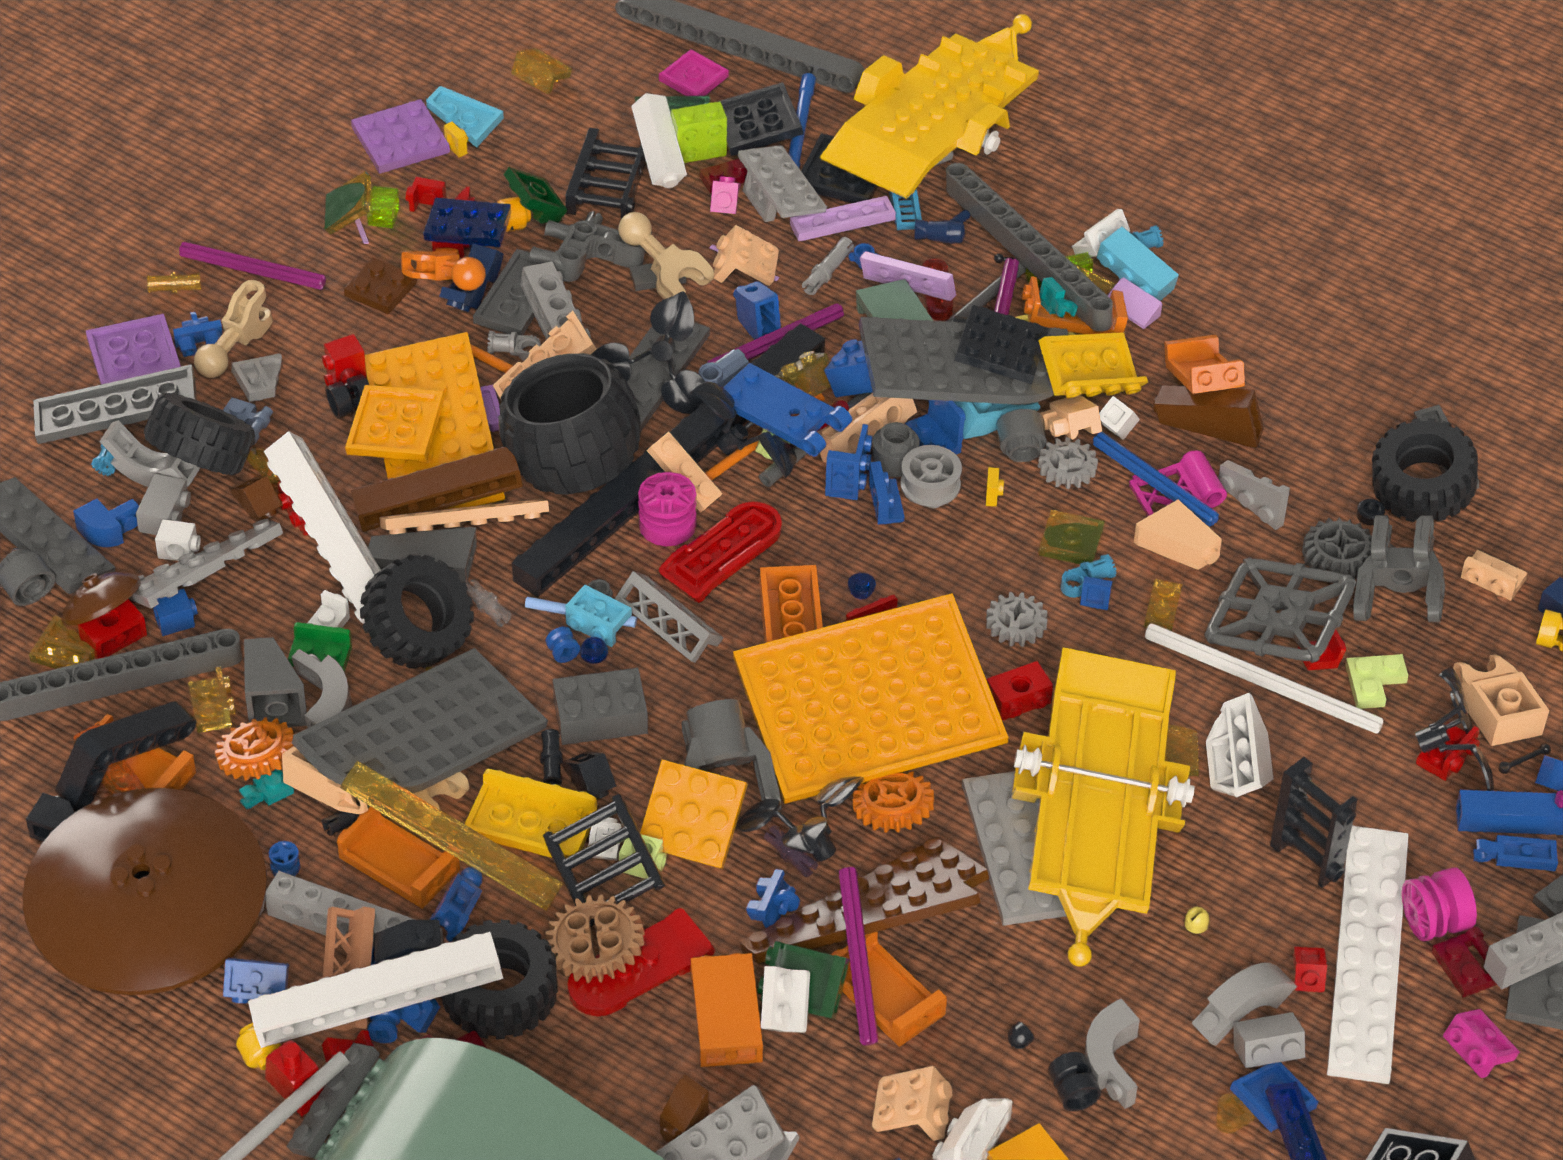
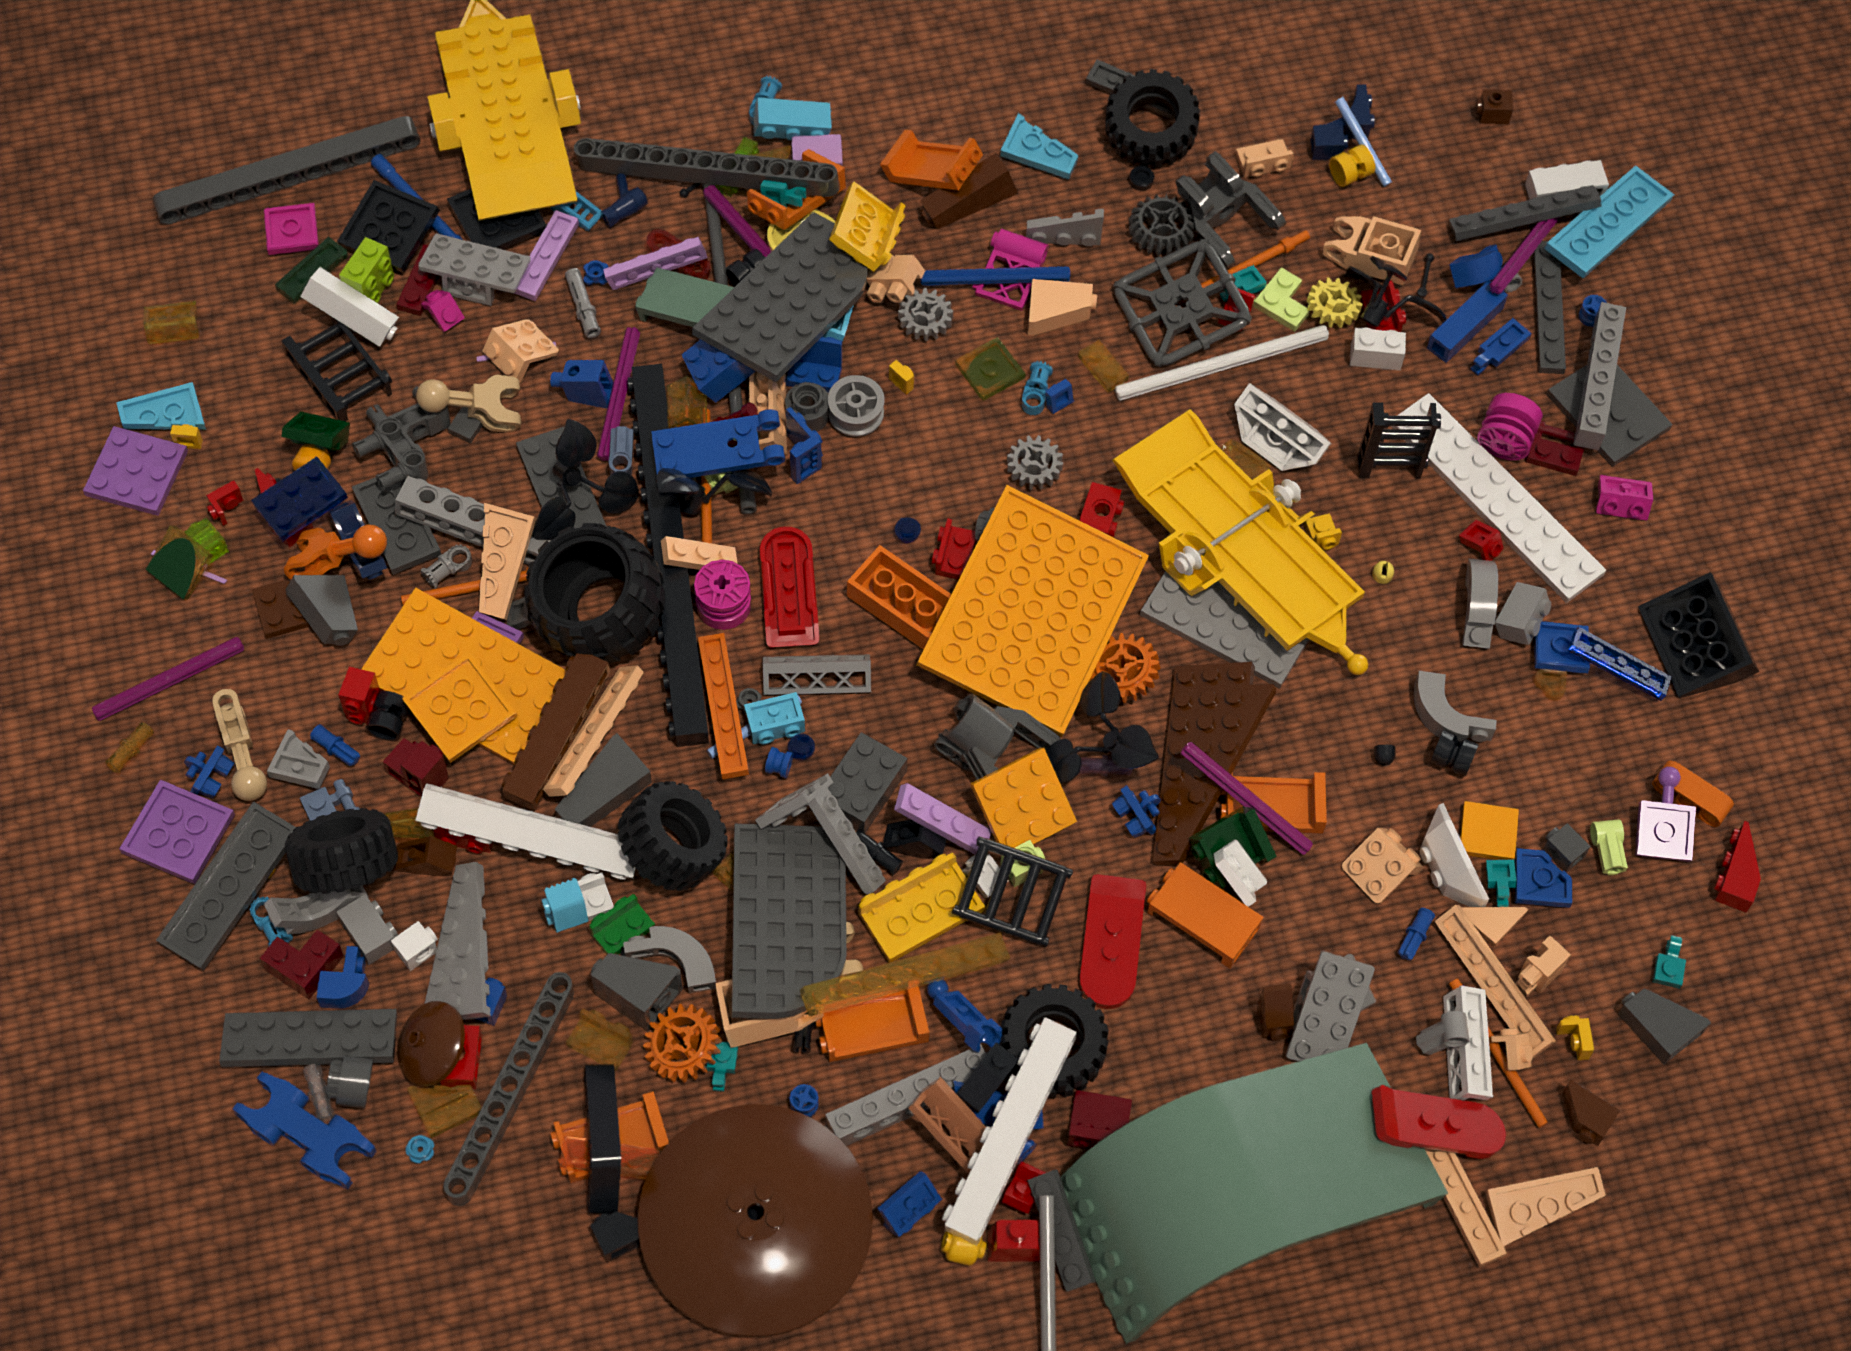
camera: 50 degrees left, 15 degrees up
(14, 659) = (416, 1142): none -> dark azure plate
(90, 483) = (302, 968): none -> dark red brick
(295, 387) = (335, 745): none -> blue axle
(295, 595) = (564, 905): none -> medium azure brick
(323, 439) = (416, 765): none -> dark red brick
(400, 299) = (325, 606): none -> dark grey slope
(488, 603) = (695, 780): clear pin -> none
(539, 681) = (835, 825): none -> light grey bracket
(572, 576) = (723, 706): none -> orange plate
(613, 762) = (940, 818): none -> lavender plate
(617, 933) = (1089, 930): medium nougat gear -> none
(885, 496) = (844, 450): blue bracket -> none
(1001, 344) = (803, 263): black plate -> none
(1021, 434) = (876, 321): dark grey piece -> none
(1100, 232) = (738, 115): white bracket -> none
(1118, 418) = (923, 249): white brick -> none
(1183, 852) = (1323, 532): none -> yellow bracket
(1309, 428) = (1035, 149): none -> medium azure wing
(1358, 640) = (1247, 280): none -> teal plate
(1404, 767) = (1377, 349): none -> white brick
(1411, 708) = (1334, 302): none -> light yellow gear
(1428, 644) = (1284, 246): none -> orange bar

